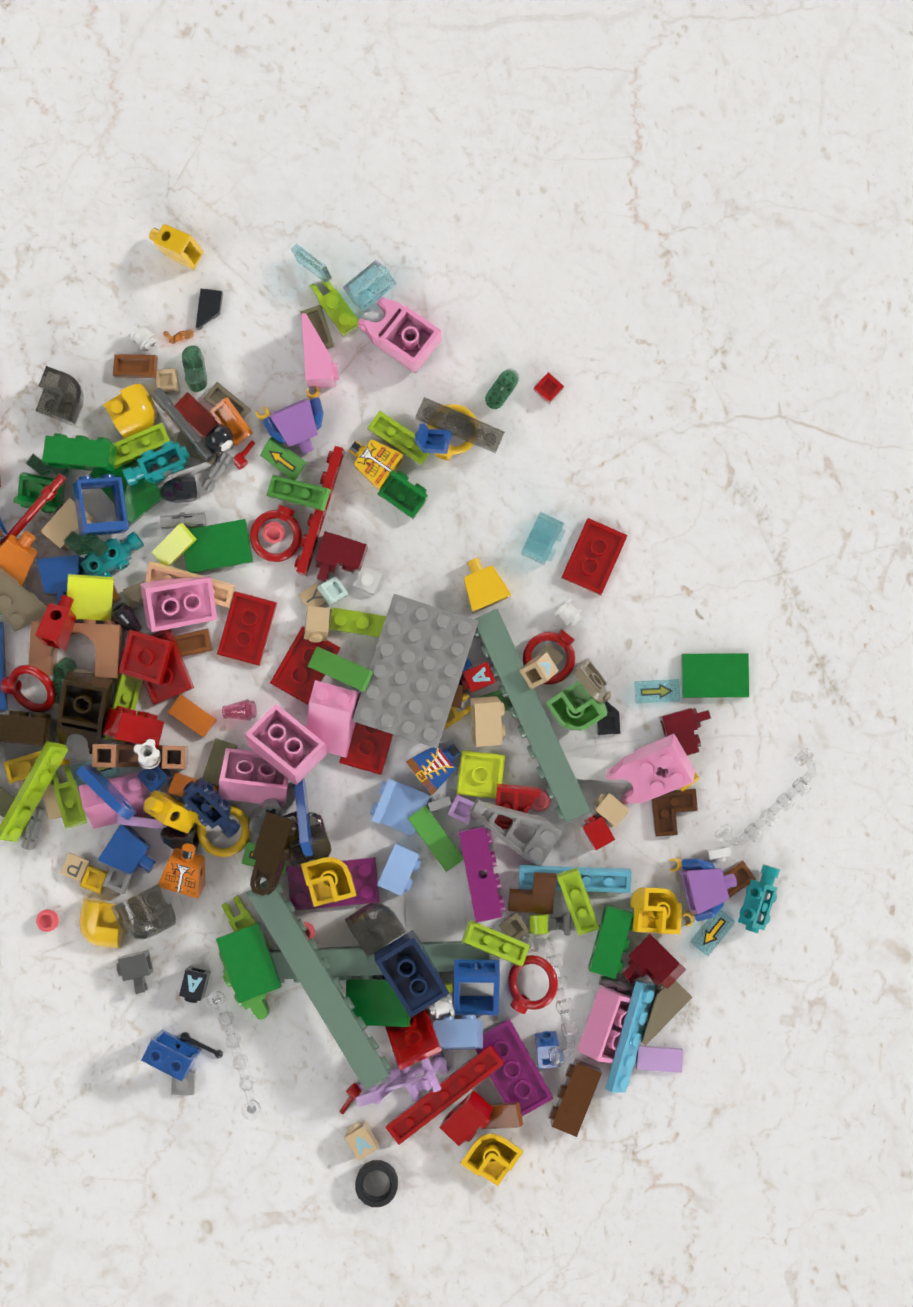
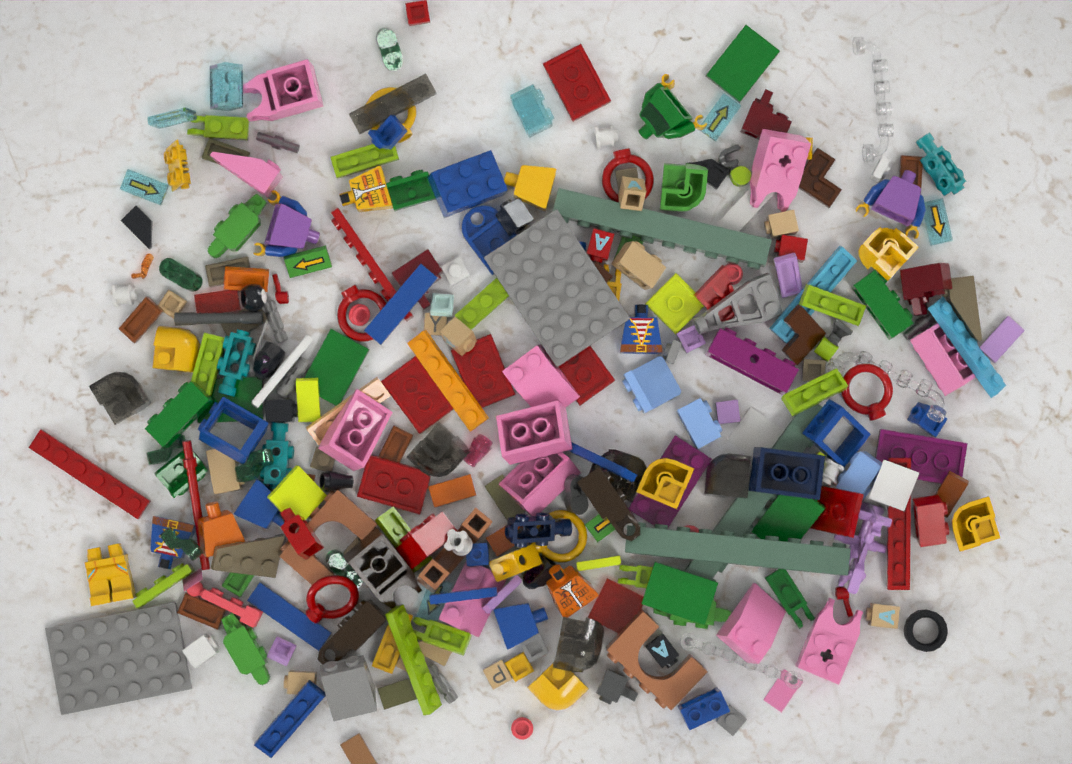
camera: 50 degrees left, 0 degrees up
(145, 657) = (378, 489): red plate -> none
(148, 531) = (281, 411): none -> black brick
(167, 1011) = (668, 688): none -> nougat arch
(177, 245) = (72, 211): yellow torso -> none
(178, 507) = (282, 370): none -> white tile
(186, 1037) = (697, 691): black hinge -> none
(201, 919) = (615, 606): none -> clear red tile
(212, 681) = (439, 452): none -> clear smoke brick
(224, 877) = (598, 563): none -> neon yellow tile
(232, 1104) = (779, 695): none -> bright pink sticker
(241, 286) = (144, 187): none -> clear light blue tile
(266, 382) = (237, 227): none -> bright green hinge
(270, 1041) = (752, 625): none -> bright pink slope
(276, 643) = (448, 380): none -> light orange plate
(282, 287) = (173, 157): none -> yellow hinge
(298, 492) = (344, 270): bright green tile -> none
(304, 557) = (400, 304): none -> blue tile
(312, 1114) = (832, 636): none -> bright pink brick
(317, 1051) = (788, 595): none -> green hinge
(340, 669) = (509, 344): bright green tile -> none
(359, 361) = (278, 142): none -> flat silver bar
(417, 583) = (487, 235): none -> blue tile
(427, 884) = (727, 412): none -> lavender tile
(435, 838) = (697, 376): bright green tile -> none
(443, 534) = (467, 184): none -> blue brick
(447, 591) = (514, 216): none -> brick
(470, 1067) = (893, 485): none -> white sticker
(574, 846) = (788, 275): none -> lavender tile
(574, 1097) = (979, 426): reddish brown brick -> none
(592, 681) = (672, 159): dark tan tile -> none
(623, 744) = (738, 174): none -> leg
(624, 646) = (665, 114): none -> green torso

